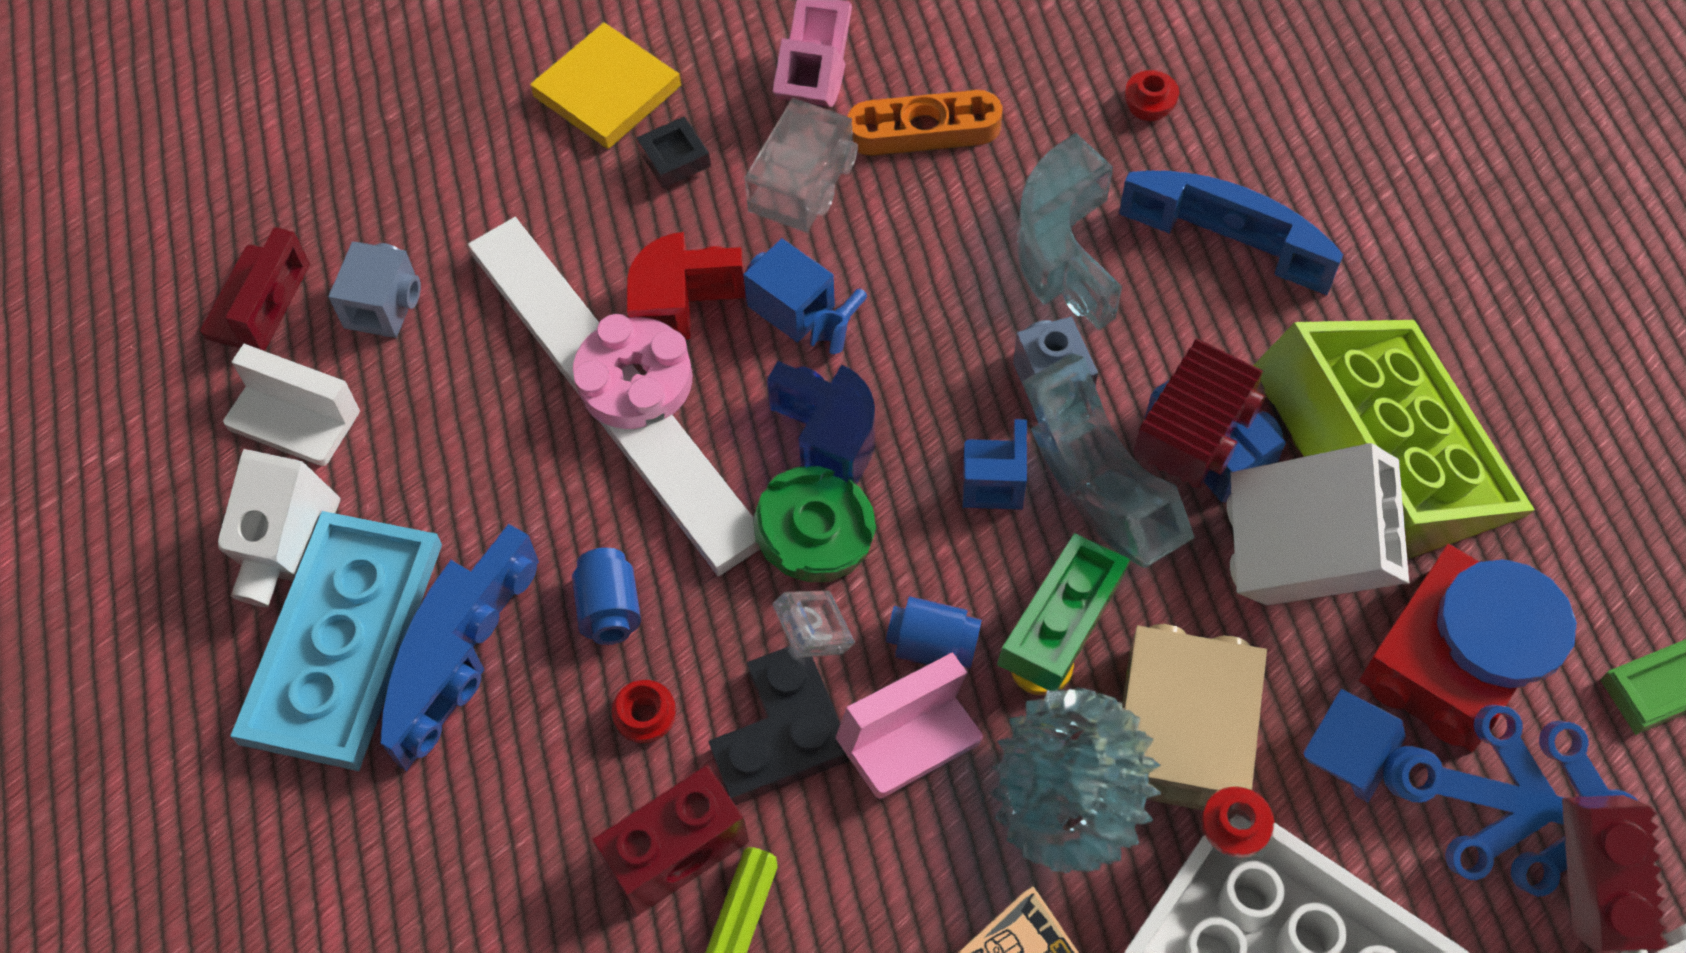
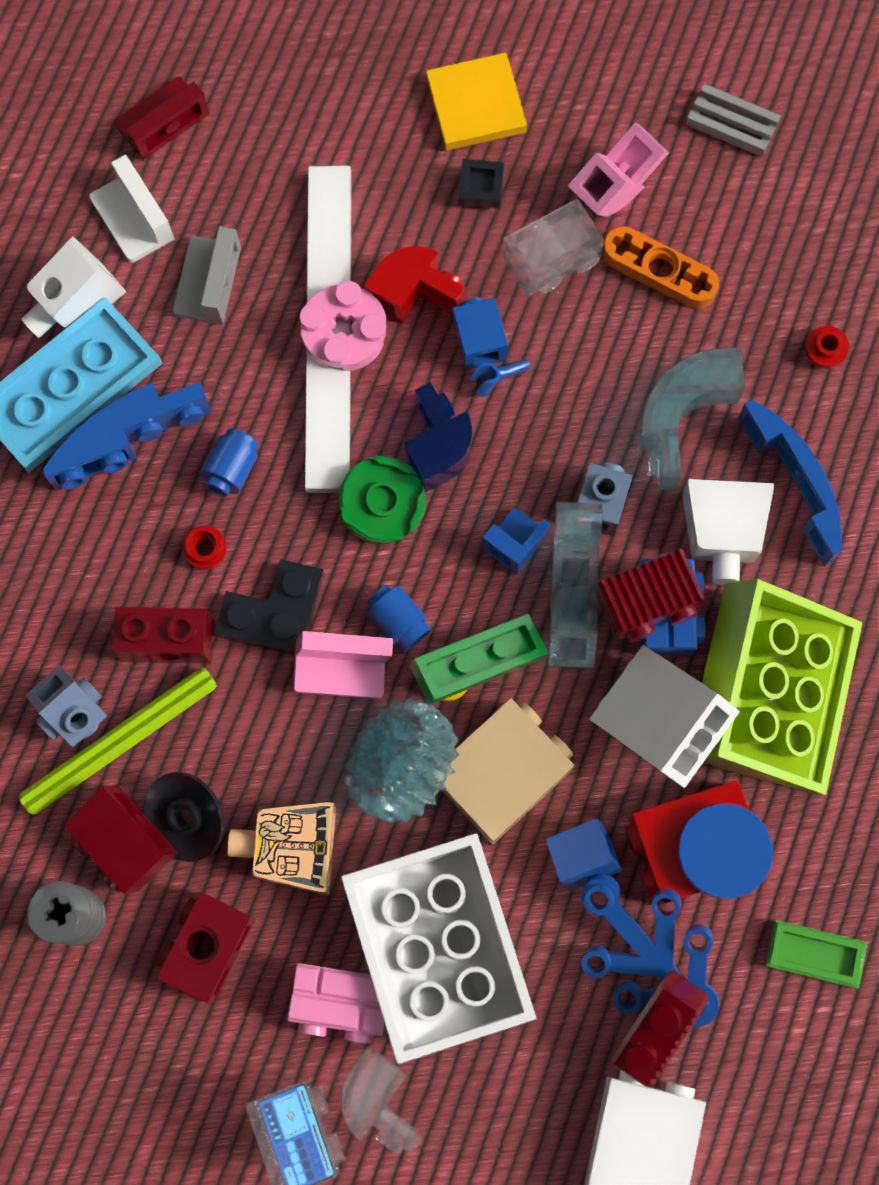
camera: 35 degrees right, 15 degrees up
(375, 289) = (231, 162): sand blue brick -> none
(430, 423) = (208, 277): none -> light grey panel
(813, 623) = (334, 562): clear tile -> none
(1199, 298) = (726, 523): none -> white torso
(1229, 839) = (466, 866): red plate -> none

